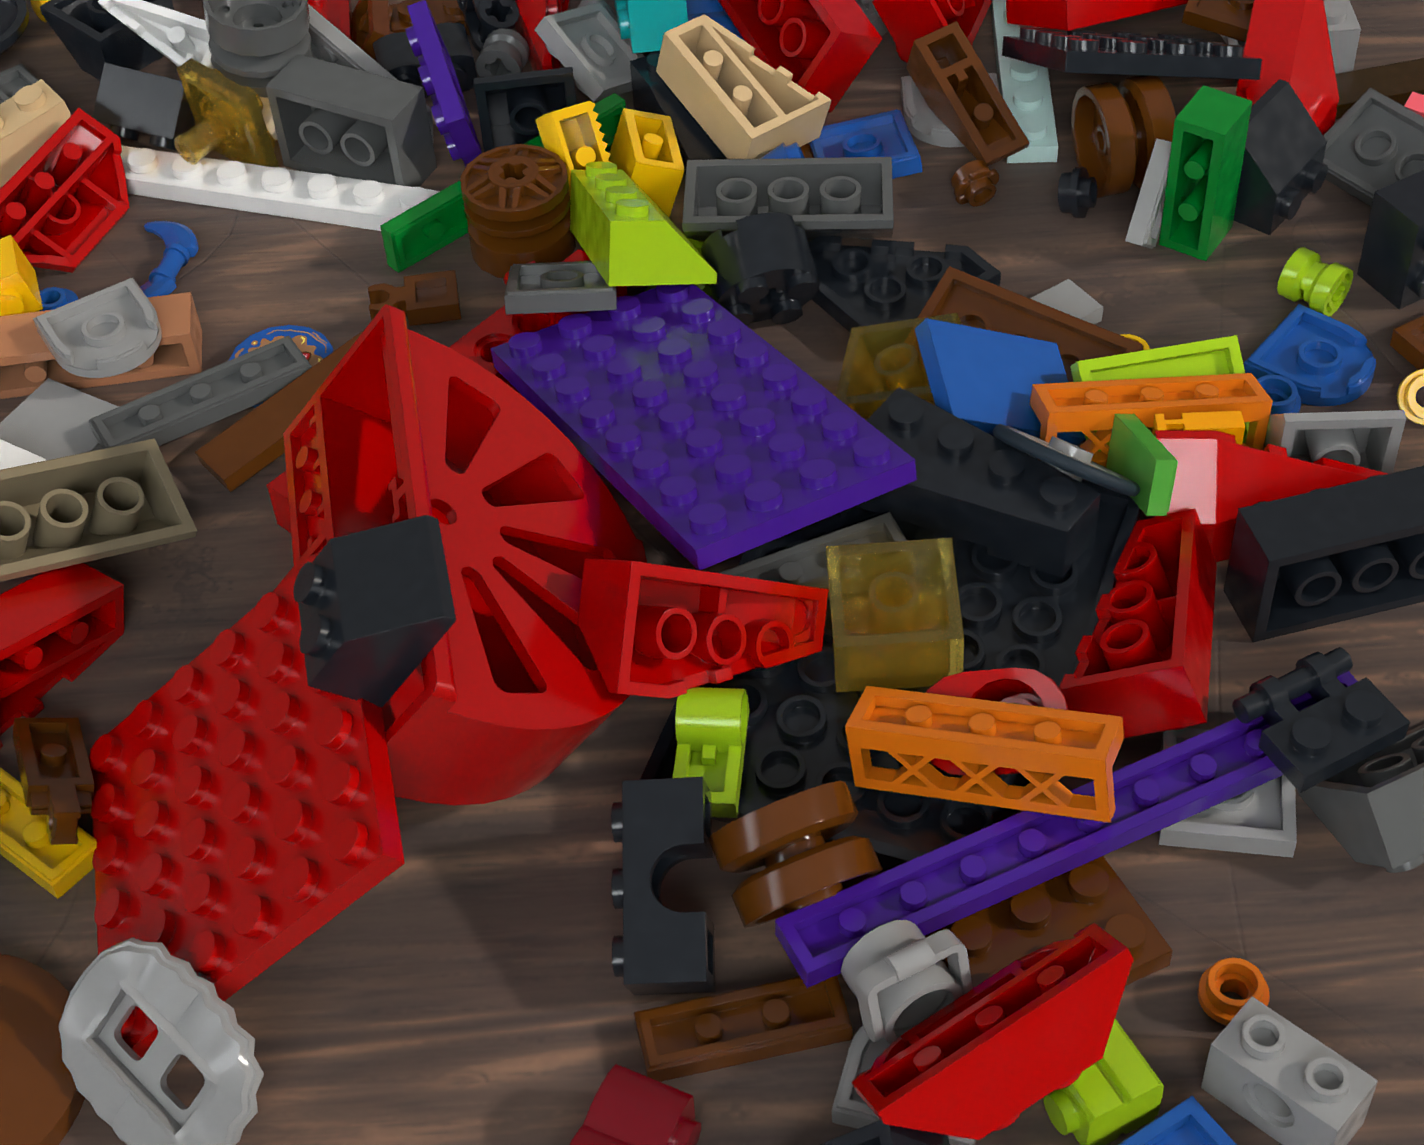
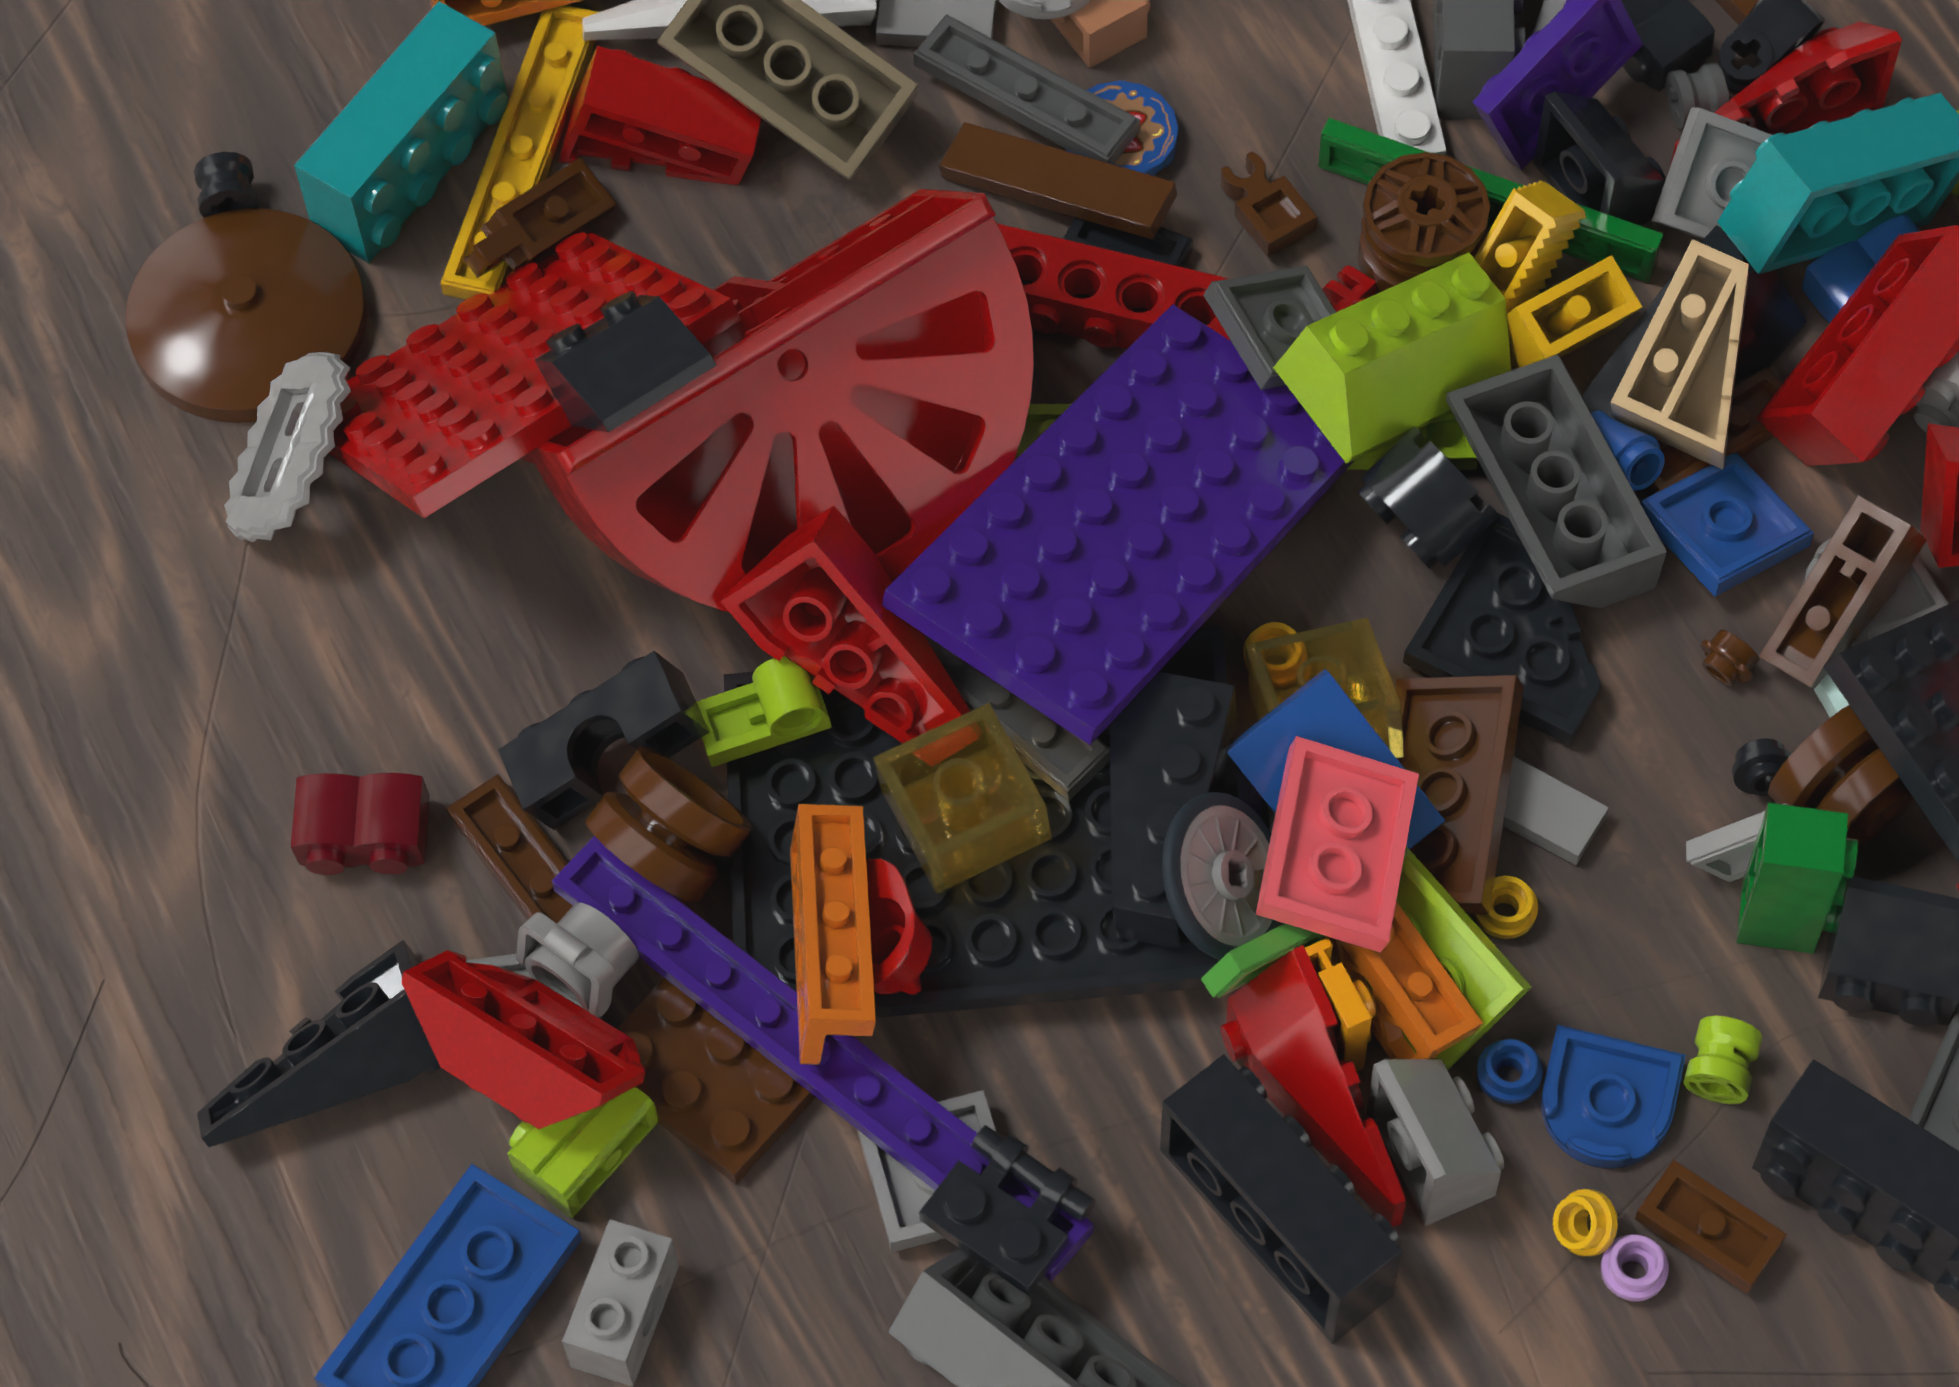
camera: 65 degrees right, 15 degrees up
(1076, 376) = (1337, 844): none -> coral plate
(1152, 632) = (1082, 1040): red wedge -> none
(1230, 976) = (713, 1222): orange plate -> none

